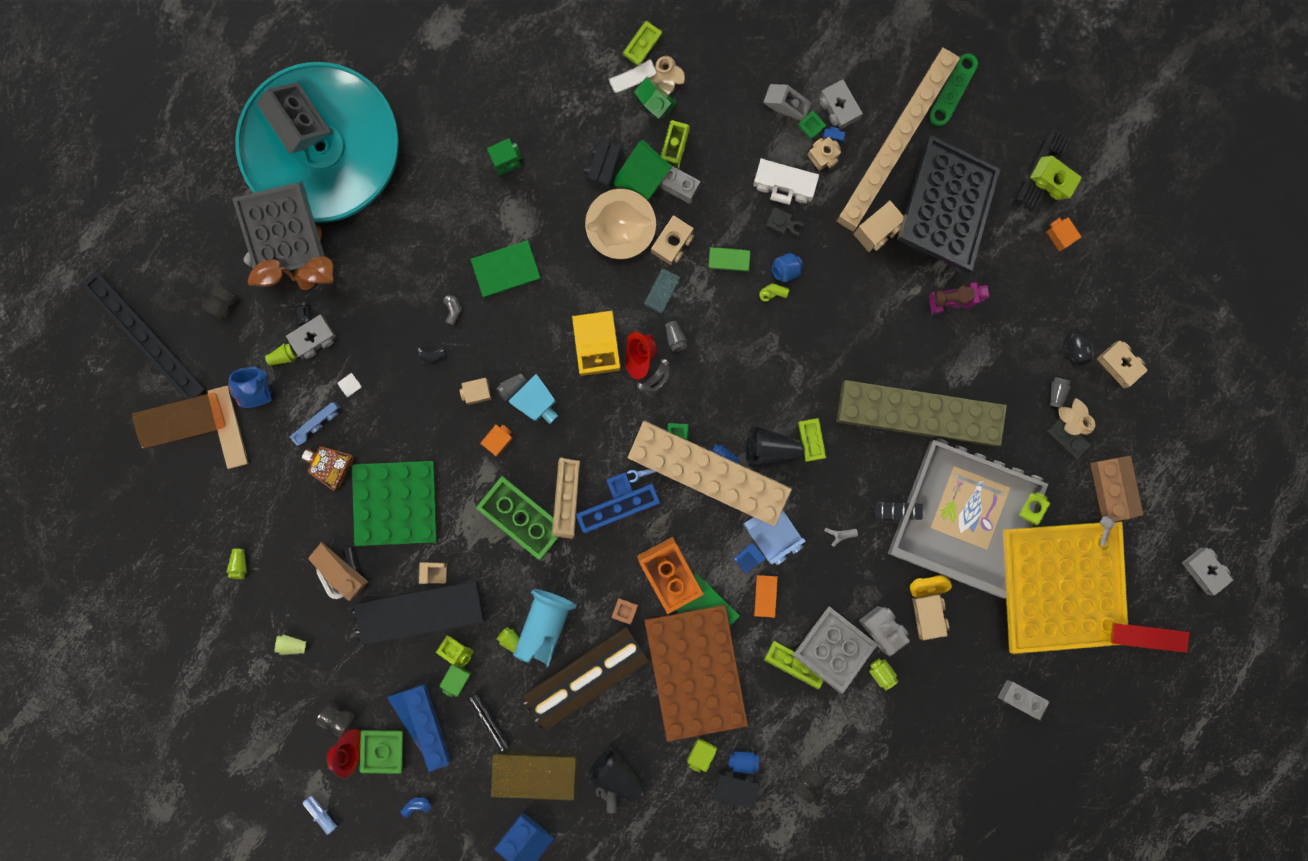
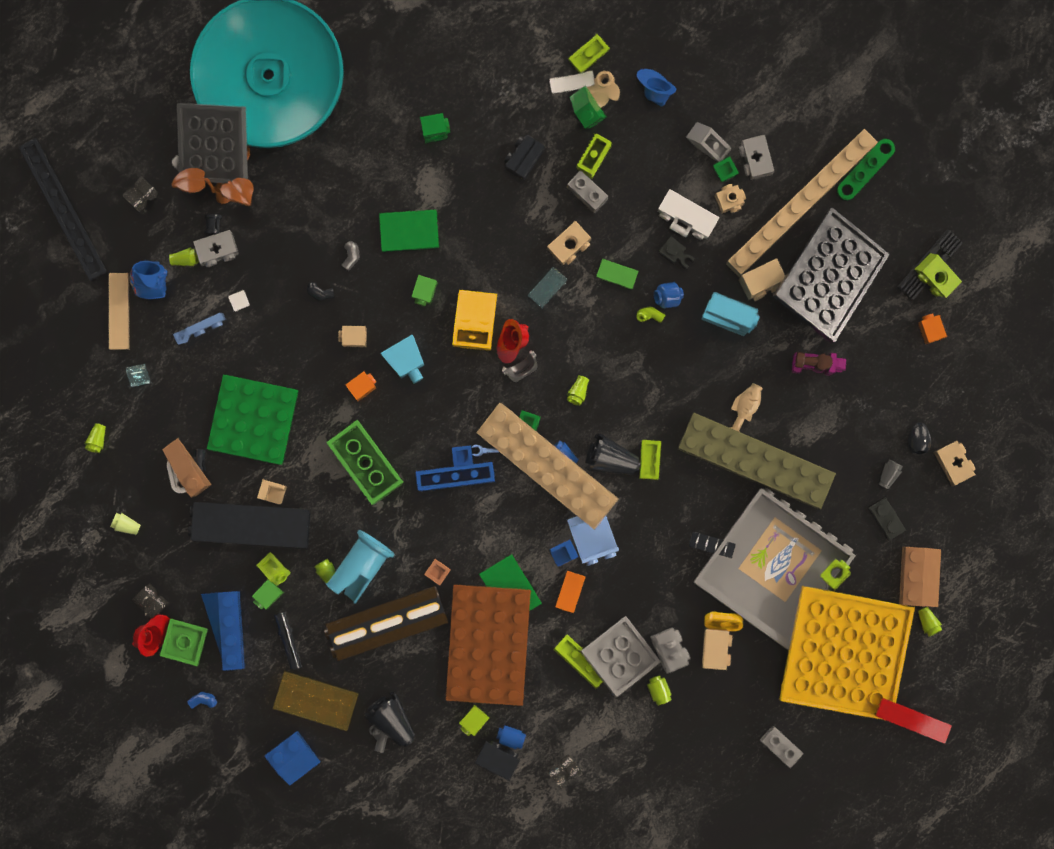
camera: 20 degrees right, 0 degrees up
(178, 420) = (76, 293): clear orange piece -> none
(264, 488) = (138, 375): none -> clear light blue plate
(293, 117) = (251, 43): dark grey slope -> none
(319, 814) = (113, 685): light blue axle -> none
(328, 466) = (201, 370): torso -> none
(510, 387) = (386, 340): dark grey cone -> none
(536, 326) = (424, 290): none -> bright green brick
(566, 498) = (410, 454): tan tile -> none
(620, 224) = (525, 216): tan piece -> none
(642, 171) = (556, 176): green tile -> none
(669, 575) = (487, 549): orange slope -> none
(676, 338) = (549, 334): dark grey cone -> none
(719, 59) = (655, 86): none -> blue piece
(720, 388) = (578, 391): none -> lime cone
(834, 134) = (743, 183): blue plate -> none
(841, 535) = (653, 554): light grey bar -> none
(858, 269) = (730, 314): none -> medium azure arch
(895, 358) = (746, 405): none -> tan animal
(1077, 419) = (898, 502): tan plate -> none
(1108, 523) = (900, 605): light grey hand -> none
(1139, 532) = (929, 622): none -> lime cone
(1198, 565) = (974, 667): light grey brick -> none

